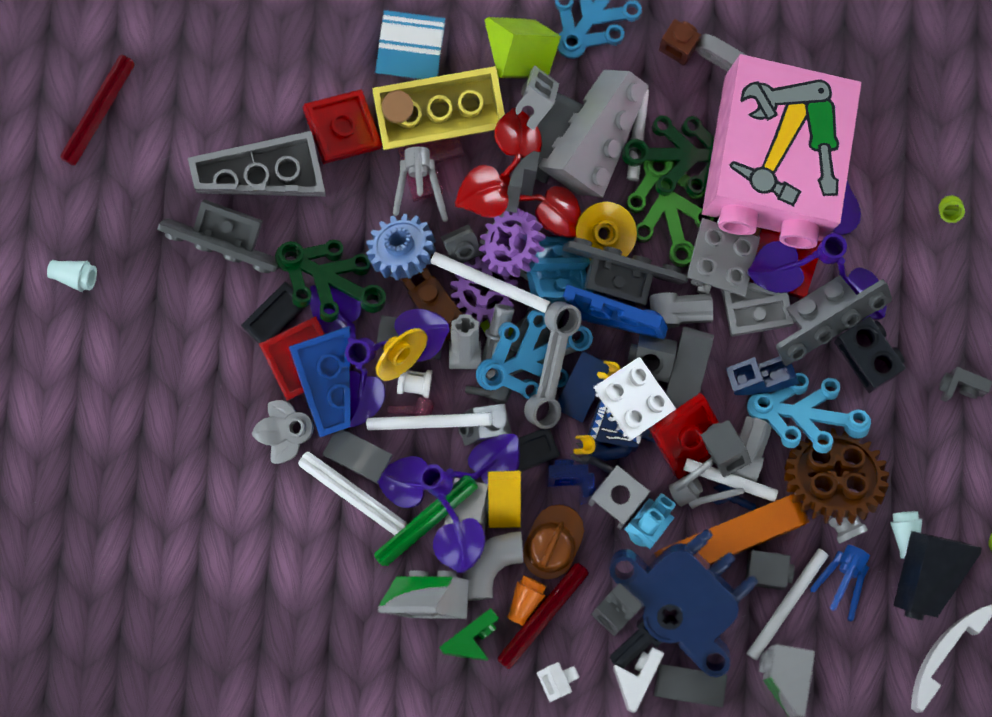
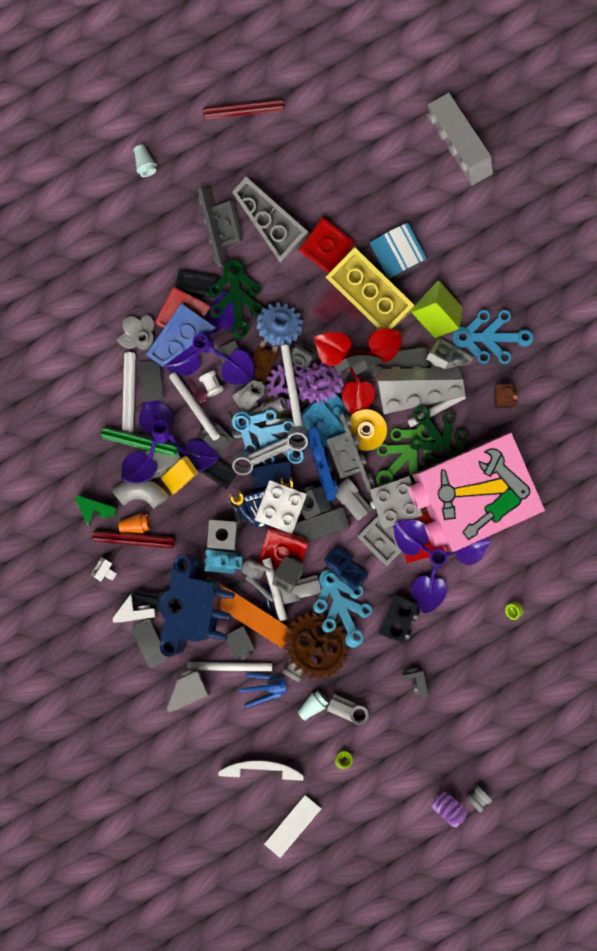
camera: 65 degrees right, 5 degrees up
(397, 107) = (352, 268): medium nougat tile -> none
(401, 354) = (217, 365): yellow dish -> none
(418, 163) = (331, 300): light grey plant -> none
(427, 596) = (98, 469): light grey slope -> none
(539, 93) = (414, 339): light grey hinge -> none
(553, 541) = (177, 517): dark orange piece -> none
(567, 474) = (216, 499): clear blue bracket -> none
(583, 73) = (448, 355): none -> light grey wing
(616, 609) = (161, 575): dark grey slope -> none
(717, 51) = (514, 424): light grey beam -> none
(829, 313) = (402, 580): dark grey bracket -> none
(932, 573) = (299, 733): black slope -> none
(941, 494) = (346, 709): none -> light grey piece

